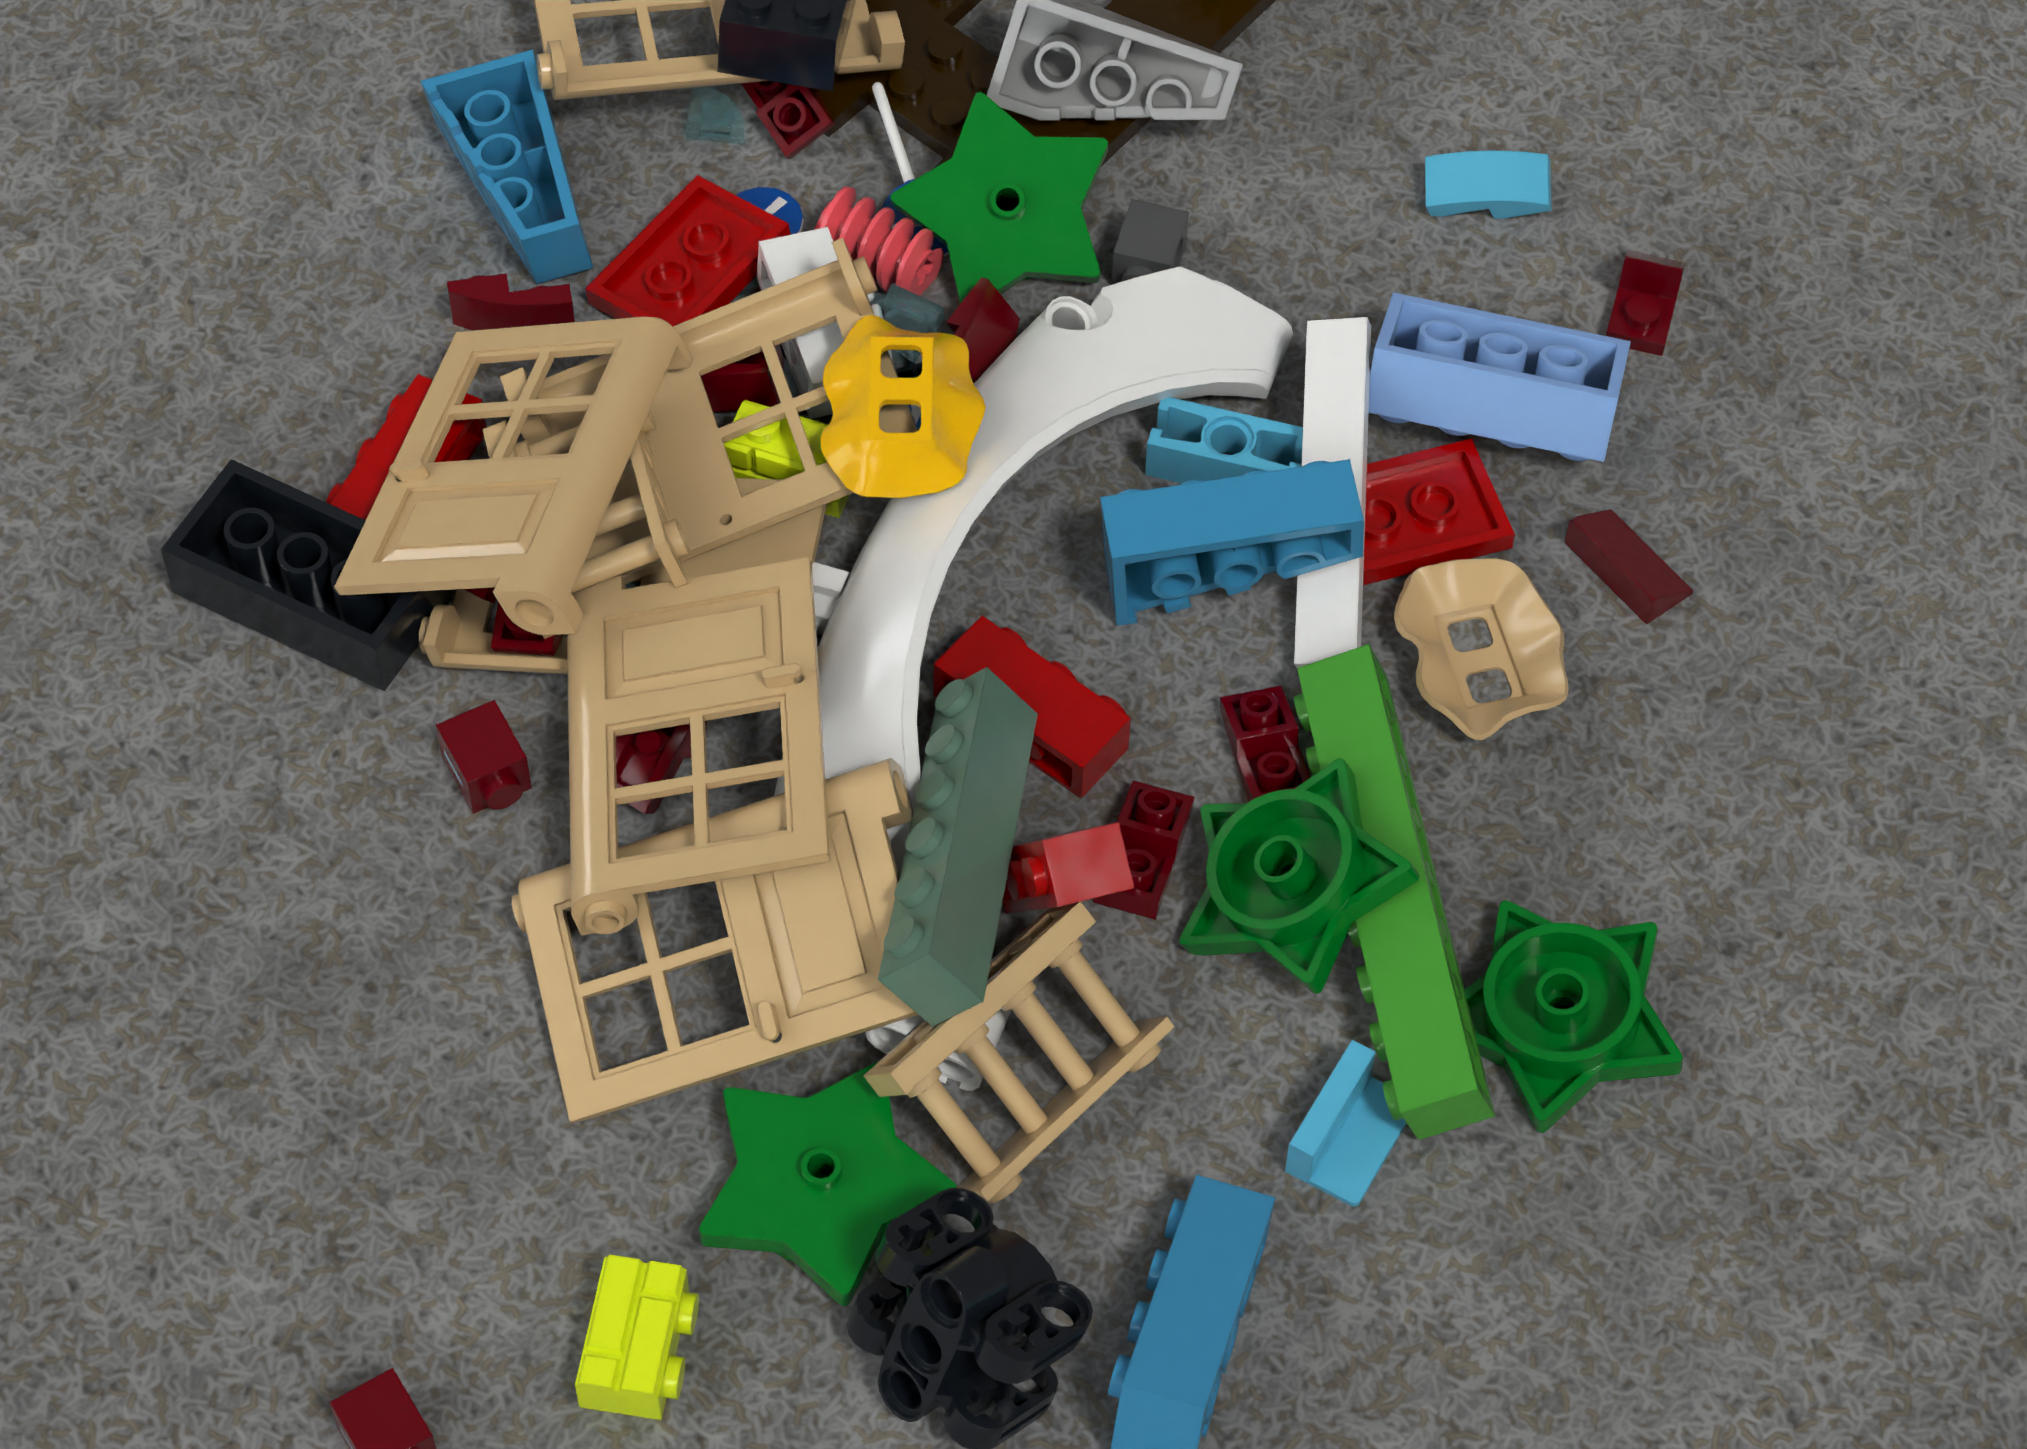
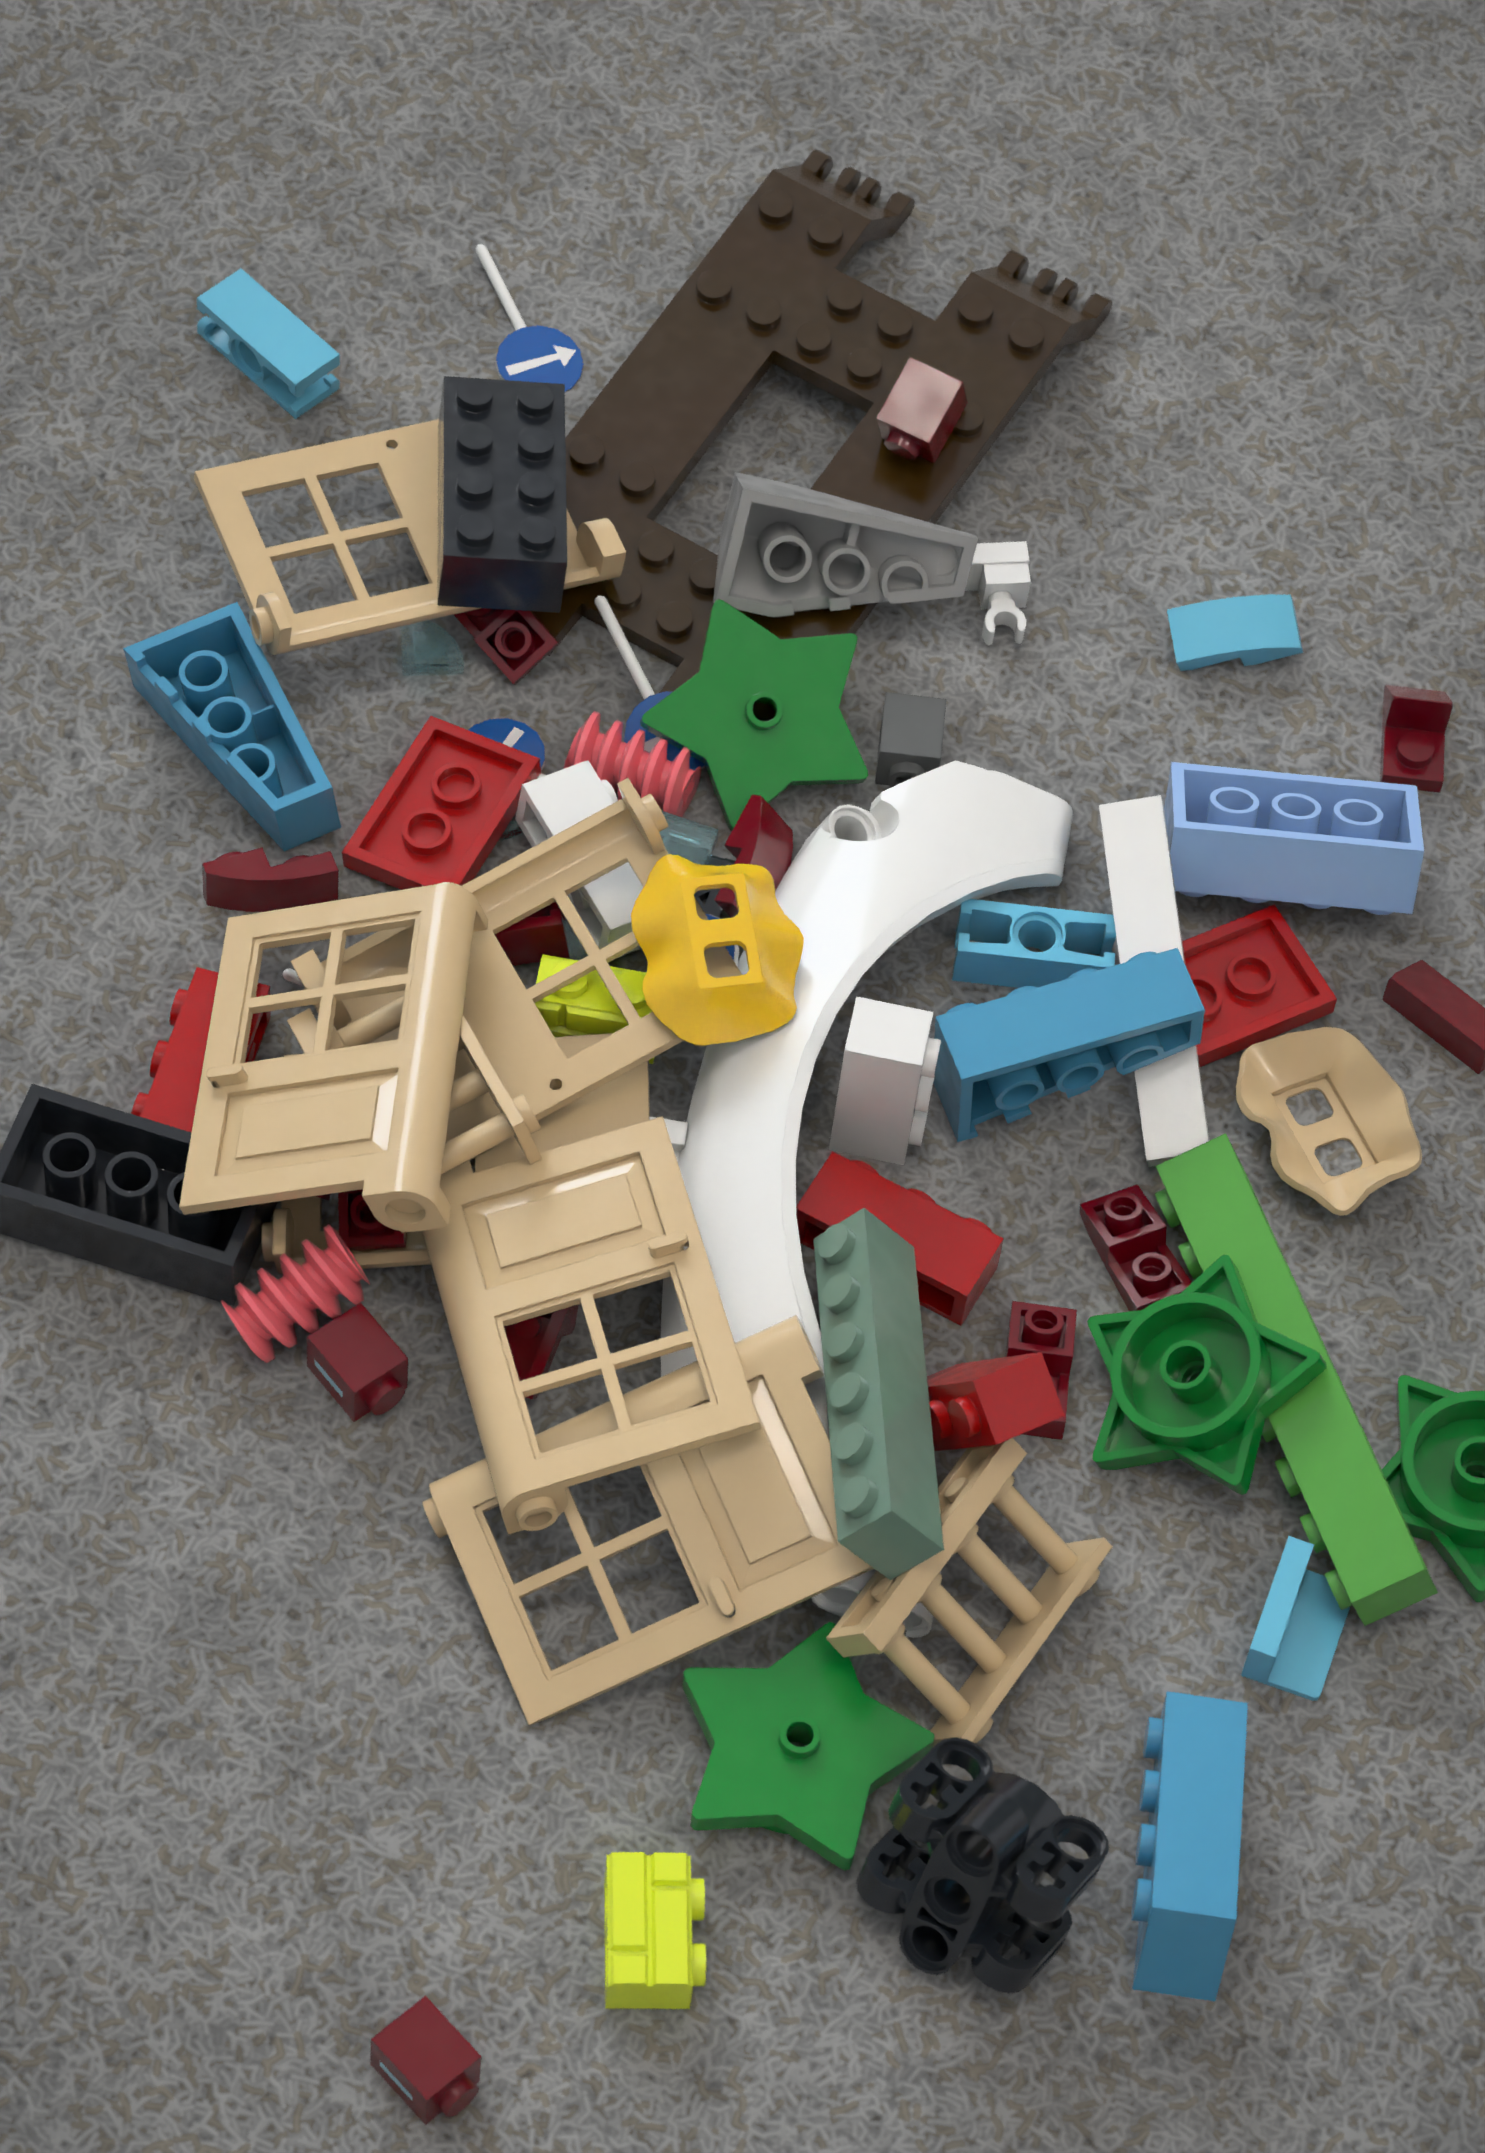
camera: 15 degrees left, 0 degrees up
(437, 688) = (297, 1295): none -> coral piece
(1039, 553) = (884, 1081): none -> white brick
(1272, 110) = (1003, 585): none -> white piece

